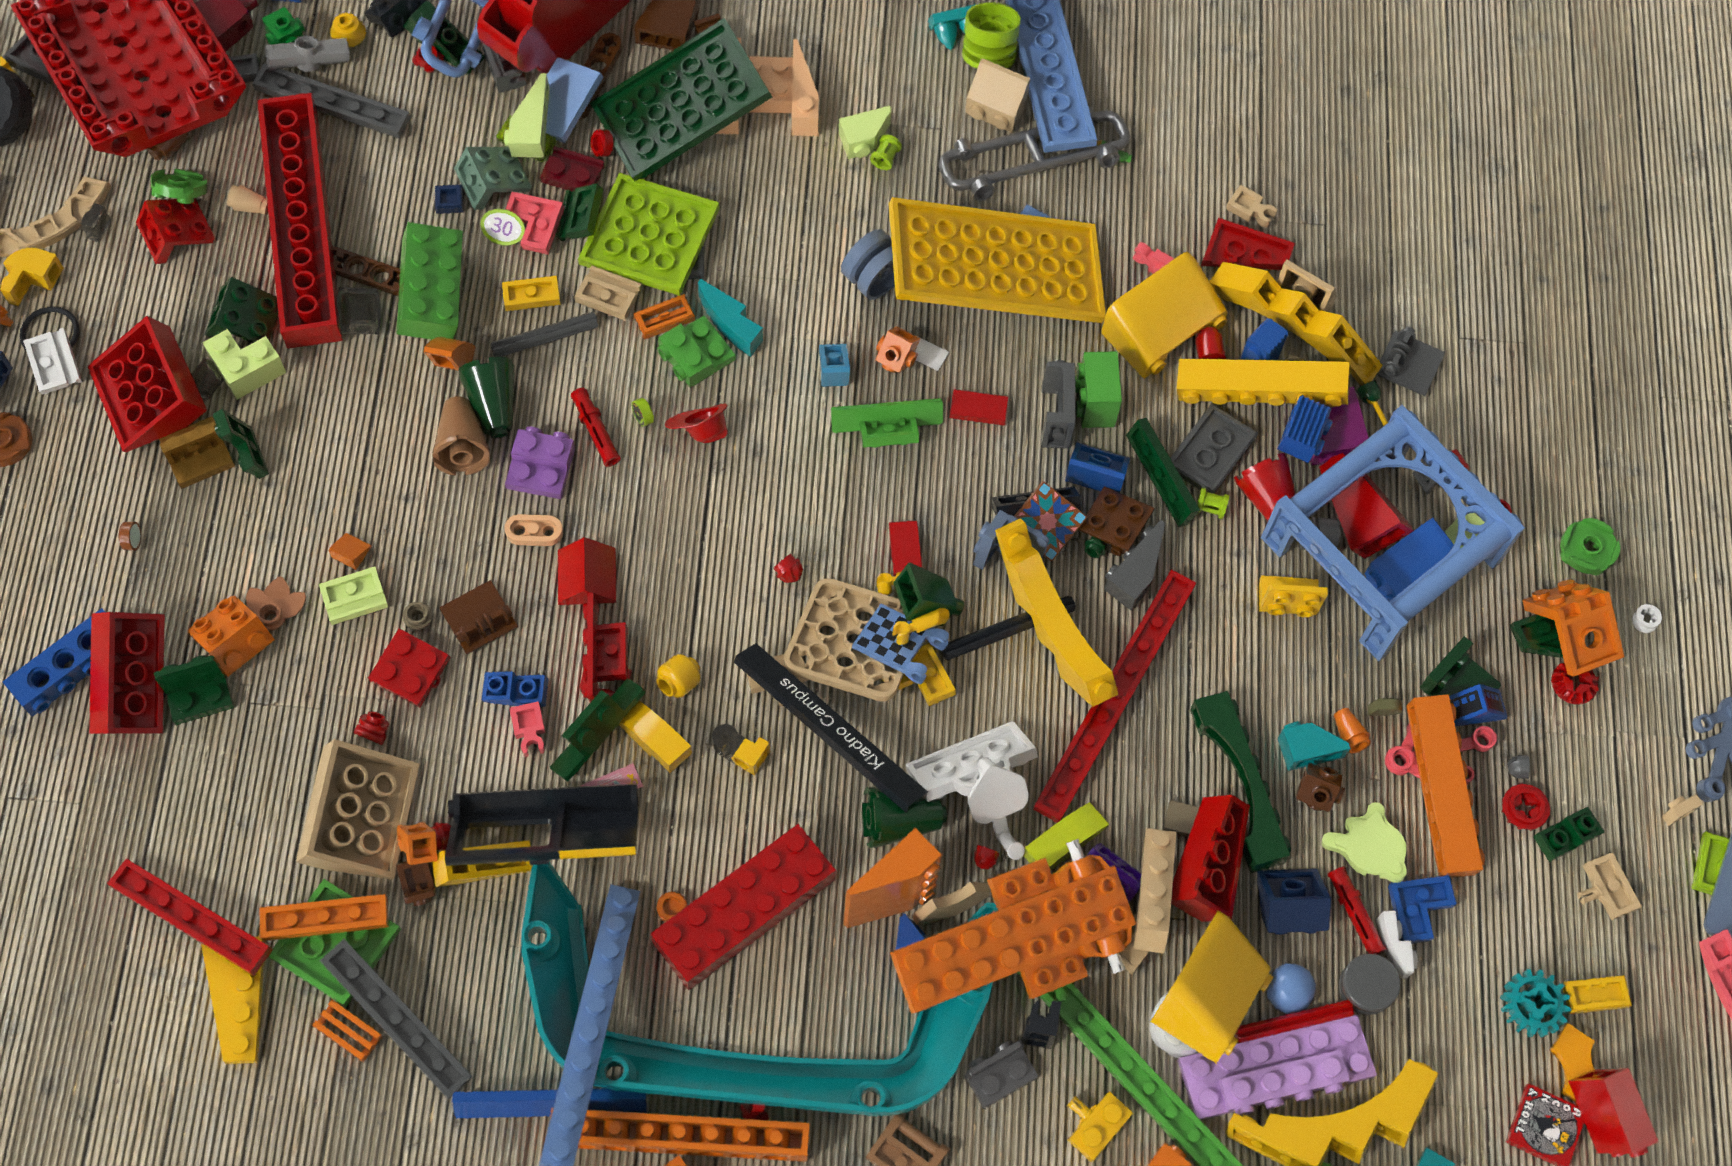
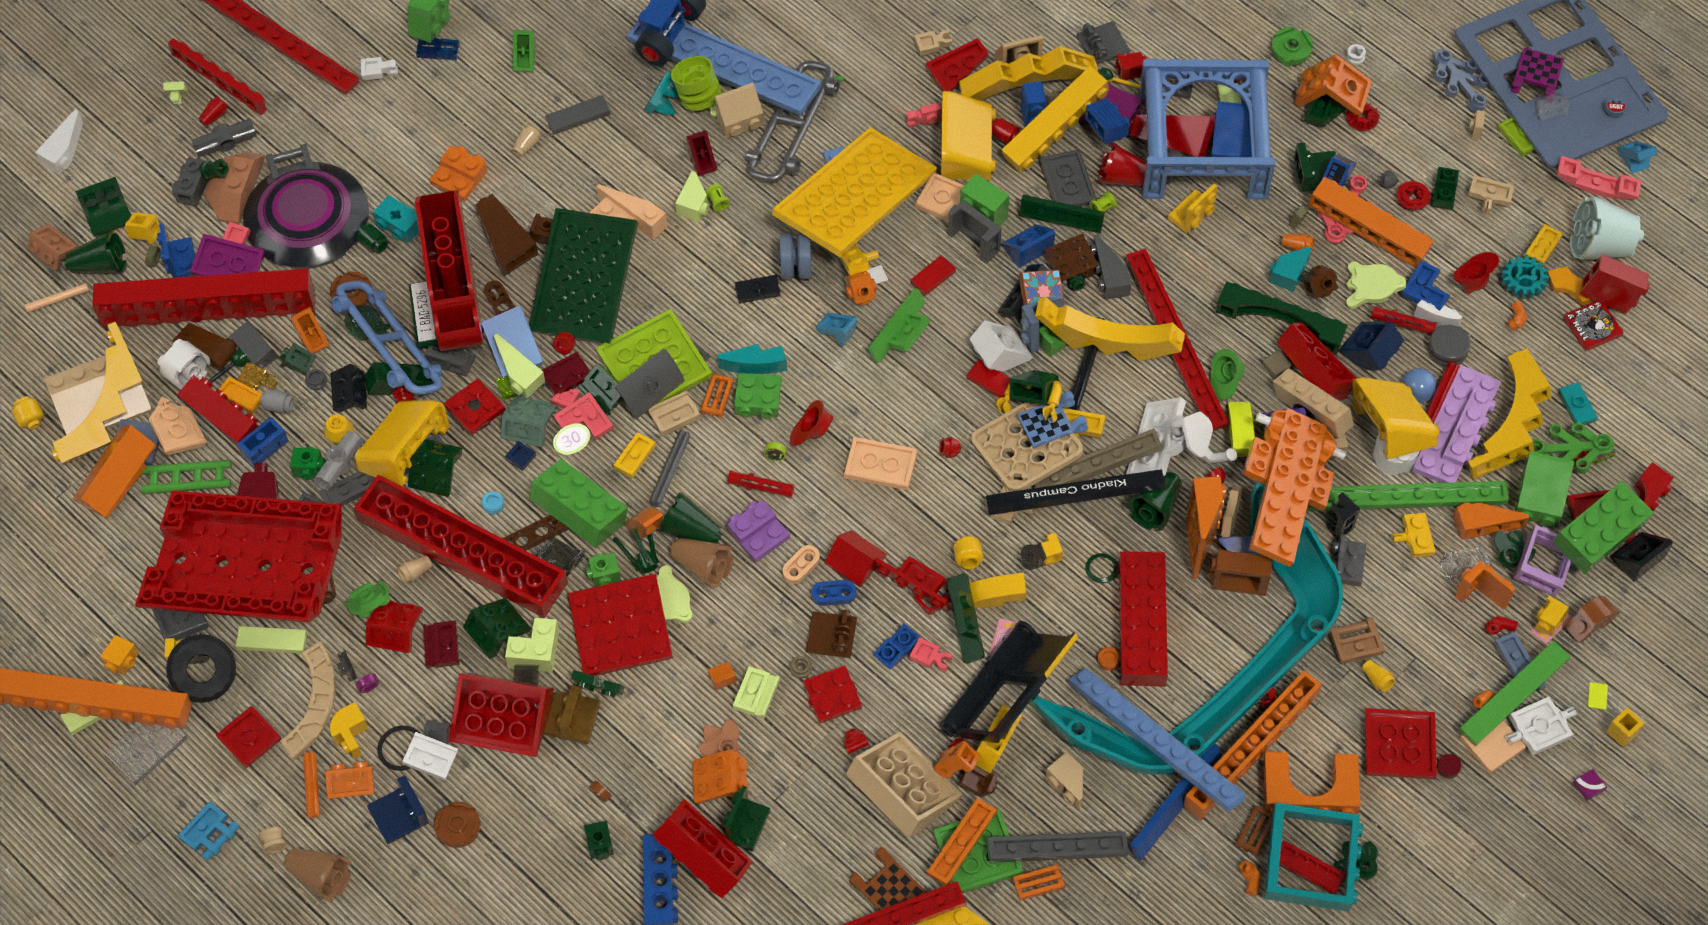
camera: 45 degrees left, 5 degrees down
(69, 132) = (271, 639): none -> yellowish green tile
(73, 574) = (599, 840): none -> dark green brick
(84, 347) = (437, 730): none -> dark grey tile
(91, 252) = (367, 683): none -> magenta tile
(184, 282) = (441, 644): none -> dark red plate
(230, 886) = (889, 886): none -> dark orange flag
(329, 419) = (620, 625): none -> red plate
(366, 128) = (433, 467): none -> dark green bracket
(368, 80) = (398, 438): none -> yellow windscreen
(376, 359) = (603, 569): none -> bright green brick
(377, 213) = (492, 502): none -> medium azure tile
(396, 437) = (674, 596): none -> yellowish green tile
(420, 387) = (646, 561): none -> dark green plant
(461, 119) = (474, 407): none -> red piece
(491, 971) = (1067, 777): none -> tan slope
(527, 585) = (834, 592): none -> blue plate
(546, 189) = (566, 398): none -> coral tile
(609, 243) = (650, 383): none -> dark grey shield
(716, 519) = (880, 463): none -> light nougat tile
(762, 833) = (1101, 580): none -> dark green piece
(816, 262) = (757, 289): none -> black plate
(873, 960) = (1240, 572): none -> dark orange window
(897, 727) = (1106, 459): none -> dark tan plate
(922, 101) = (701, 153): none -> dark red slope
(927, 322) = (857, 261): none -> yellow plate
(947, 528) = (999, 346): none -> white slope
(998, 575) = (1050, 341): none -> bright green panel
(1072, 340) = (939, 196): none -> light nougat tile
(1119, 774) = (1226, 373): none -> bright green piece
(1410, 400) = (1129, 65): none -> red brick
(1479, 1036) = (1520, 316): none -> orange arm
(1487, 944) = (1476, 271): none -> red piece
(1674, 1050) = (1604, 230): none -> light aqua cone

